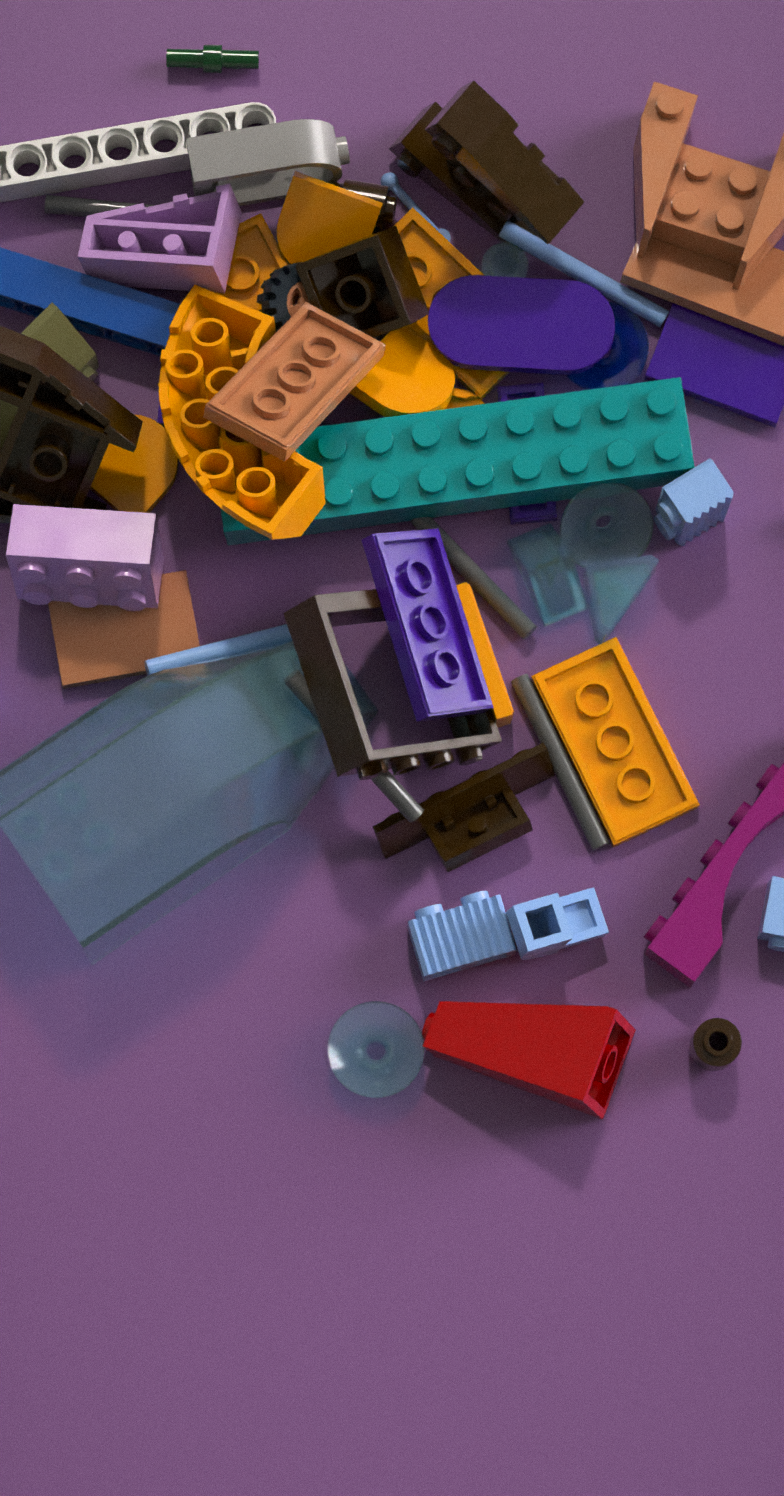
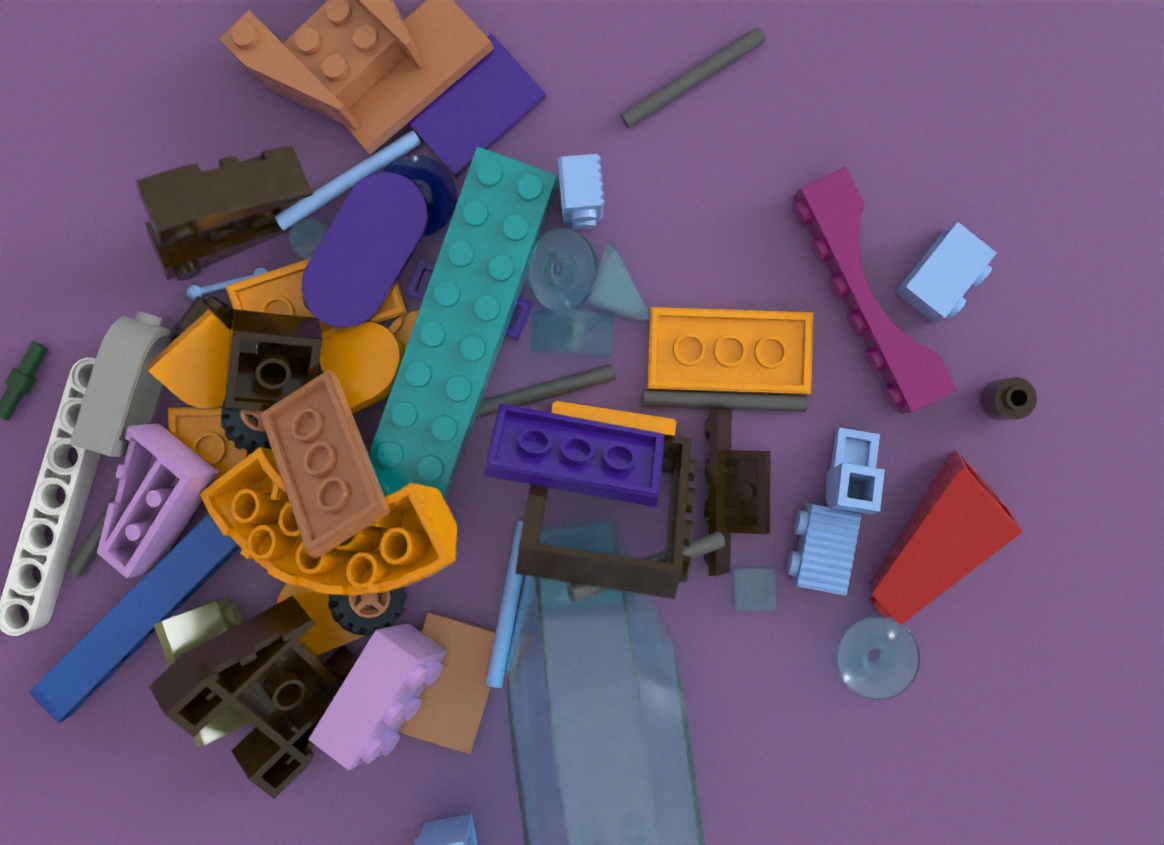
camera: 60 degrees left, 10 degrees up
(188, 505) = (366, 619): none -> black wheel
(381, 891) = (754, 588): none -> clear light blue tile

